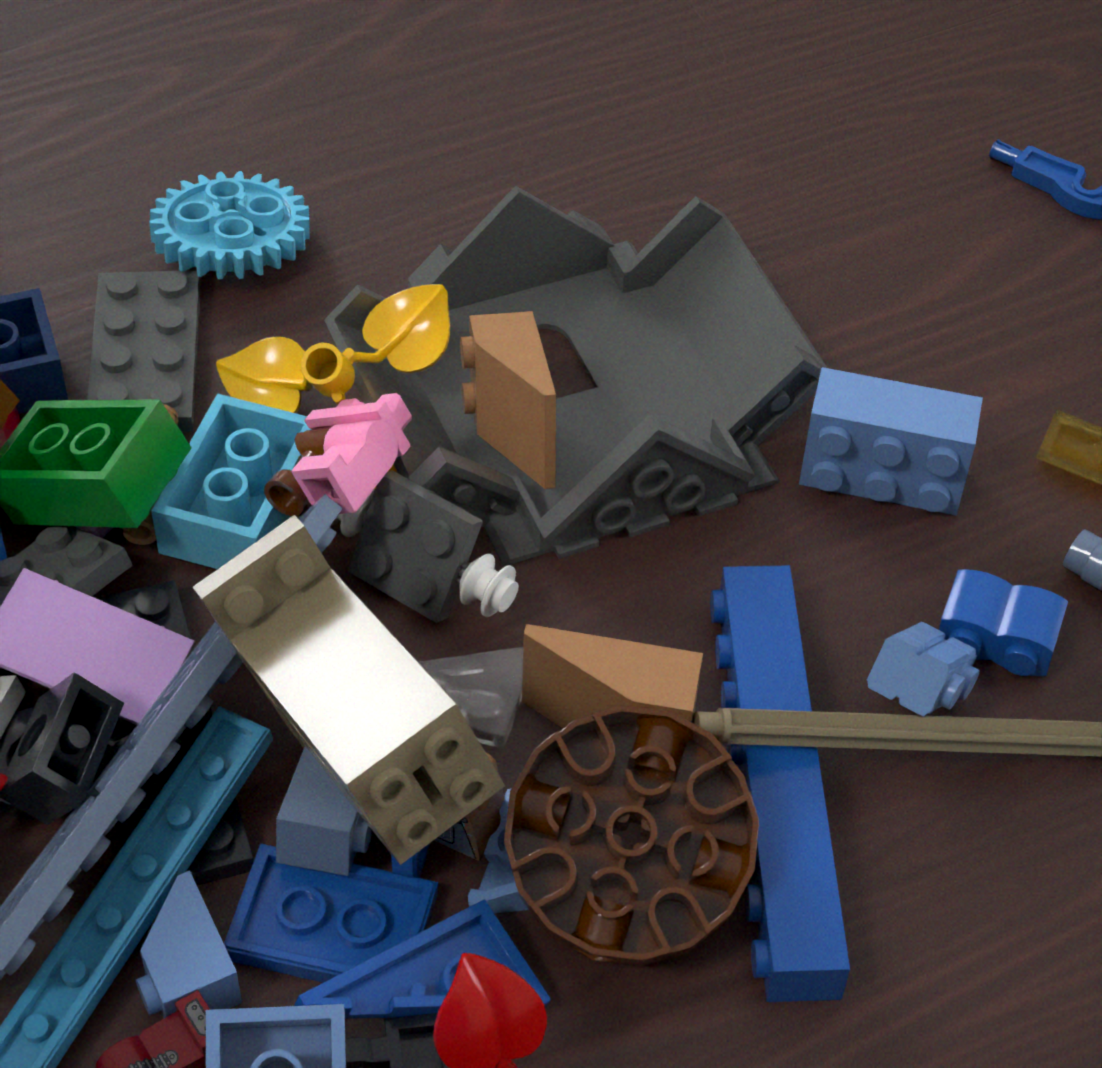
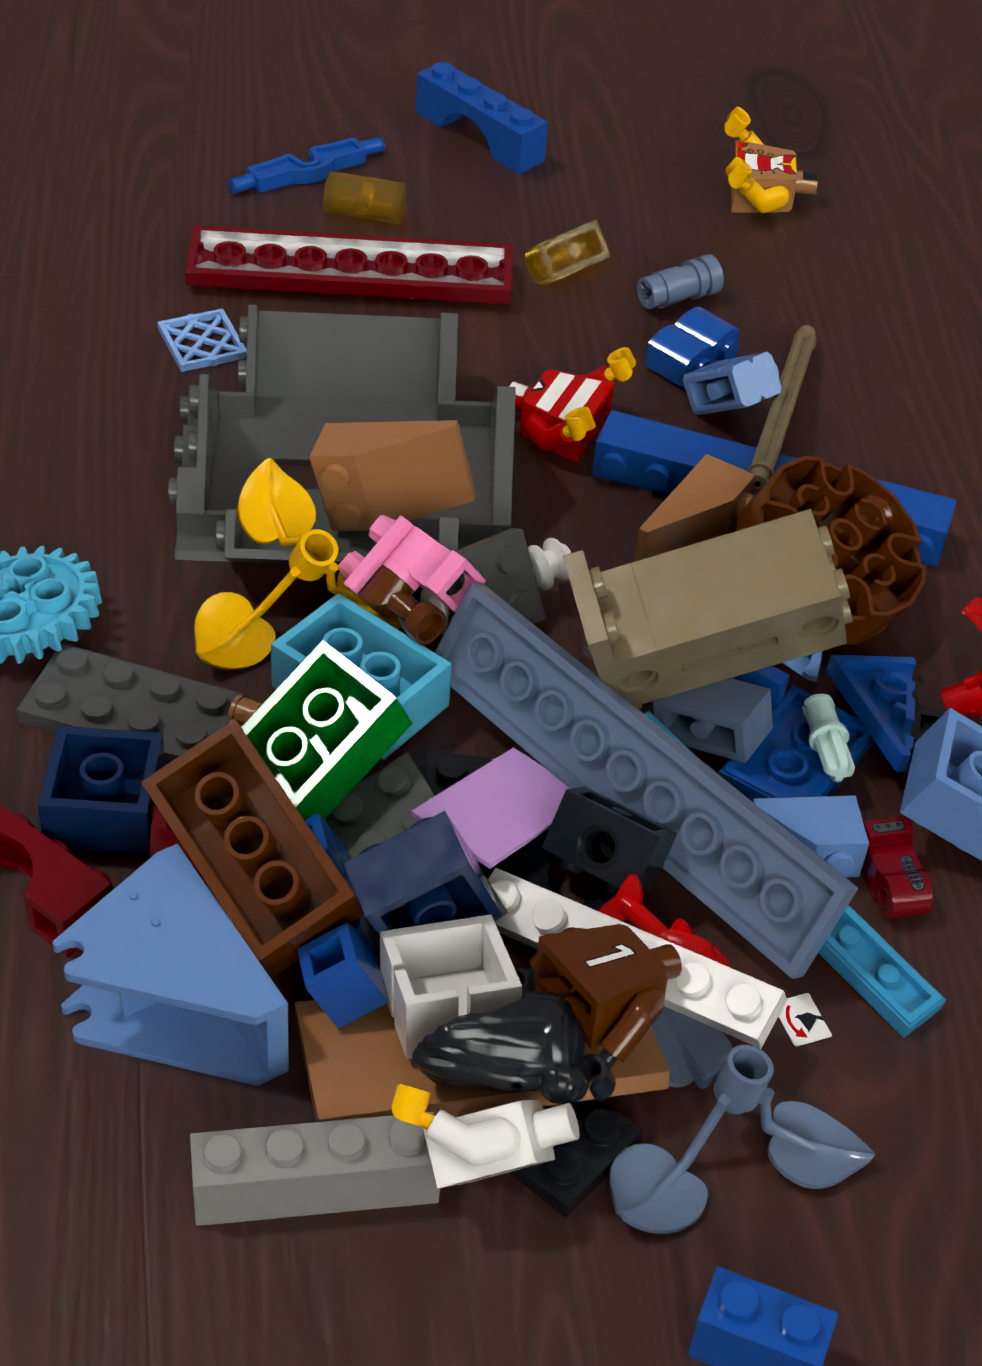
camera: 70 degrees left, 5 degrees down
(335, 928) = (828, 736): none -> light aqua axle
(763, 219) = (208, 359): none -> light blue window
(793, 527) = (569, 409): none -> red torso
(890, 441) = (521, 324): medium blue brick -> none
(928, 284) = (350, 265): none -> dark red piece
(1049, 251) = (365, 197): none -> clear yellow brick

